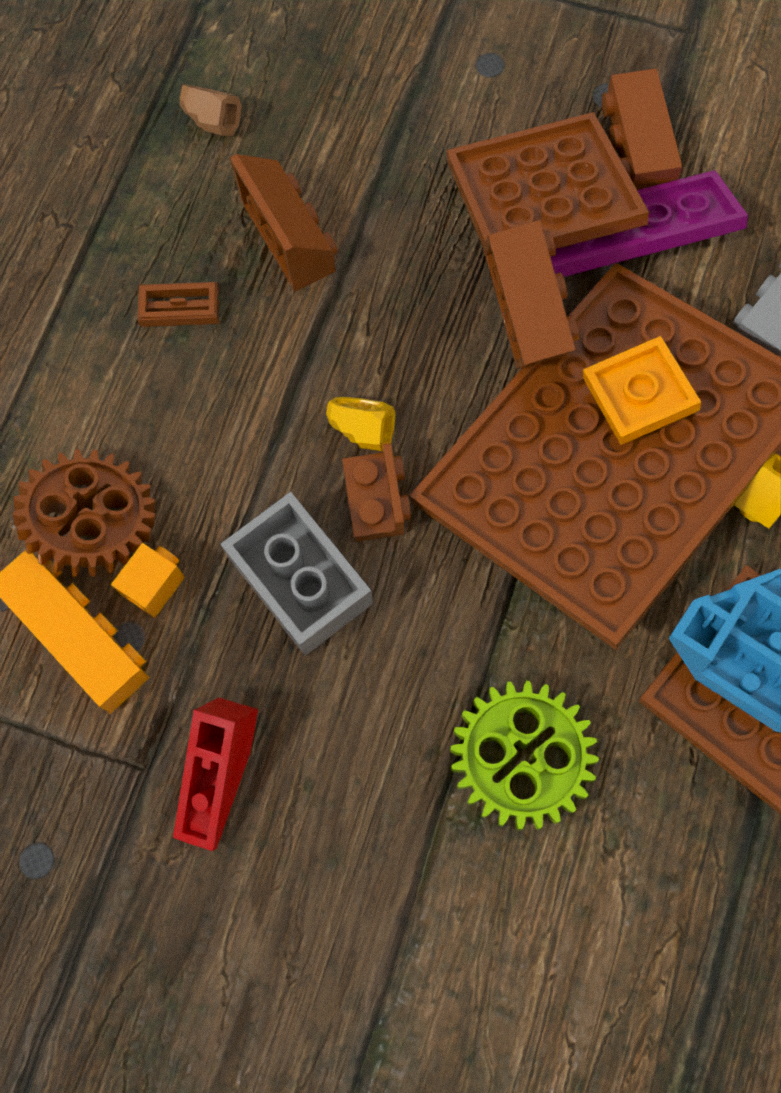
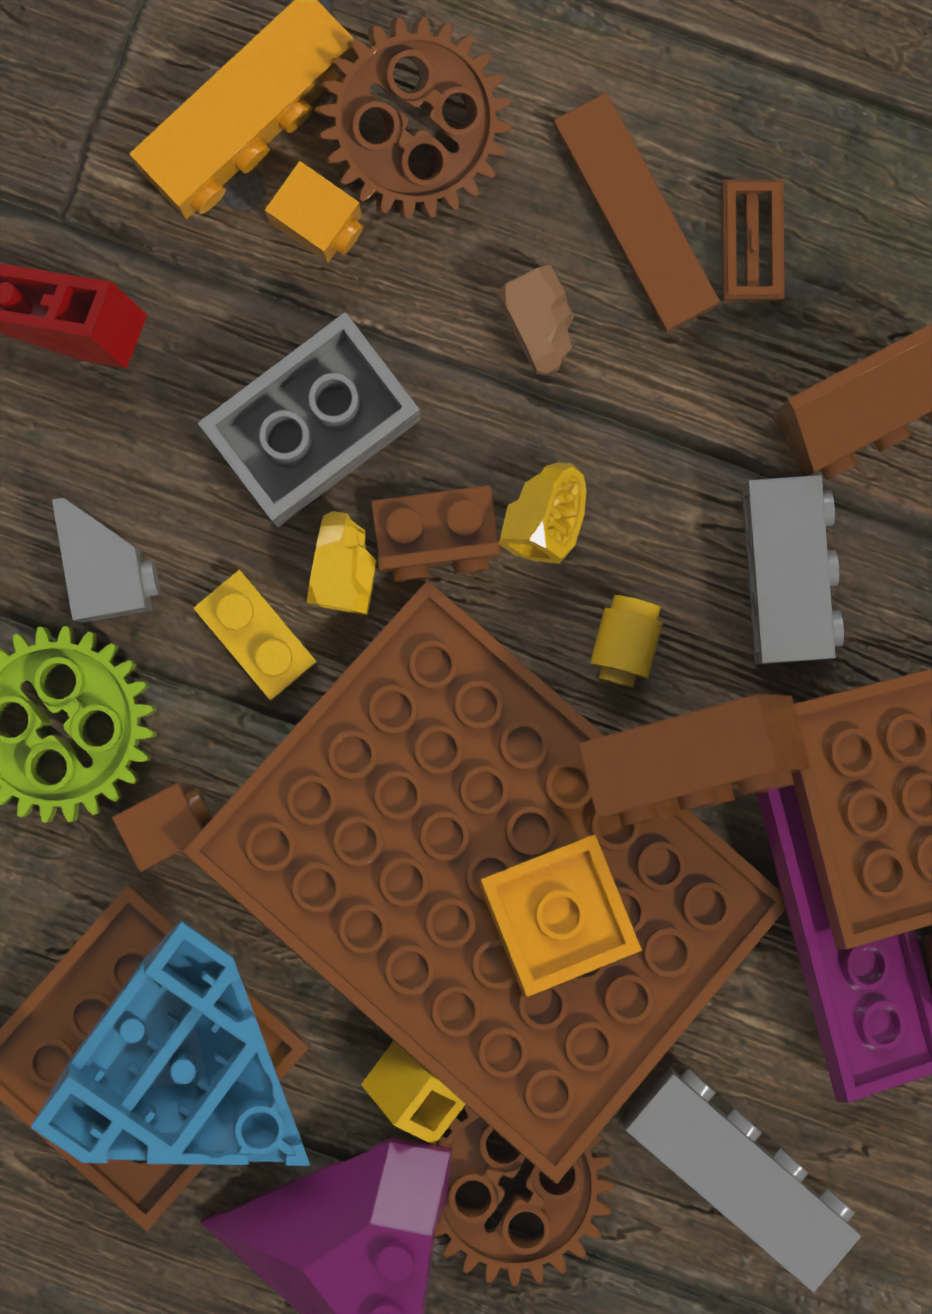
camera: 85 degrees right, 15 degrees up
(156, 375) = (636, 212): none -> dark orange tile
(228, 431) = (538, 317): none -> medium nougat rock
(398, 271) = (791, 570): none -> light grey brick
(401, 554) = (341, 567): none -> yellow rock
(404, 724) = (101, 569): none -> light grey slope
(447, 367) = (627, 640): none -> yellow brick
(451, 616) = (255, 635): none -> yellow plate
(593, 672) = (163, 824): none -> dark orange brick

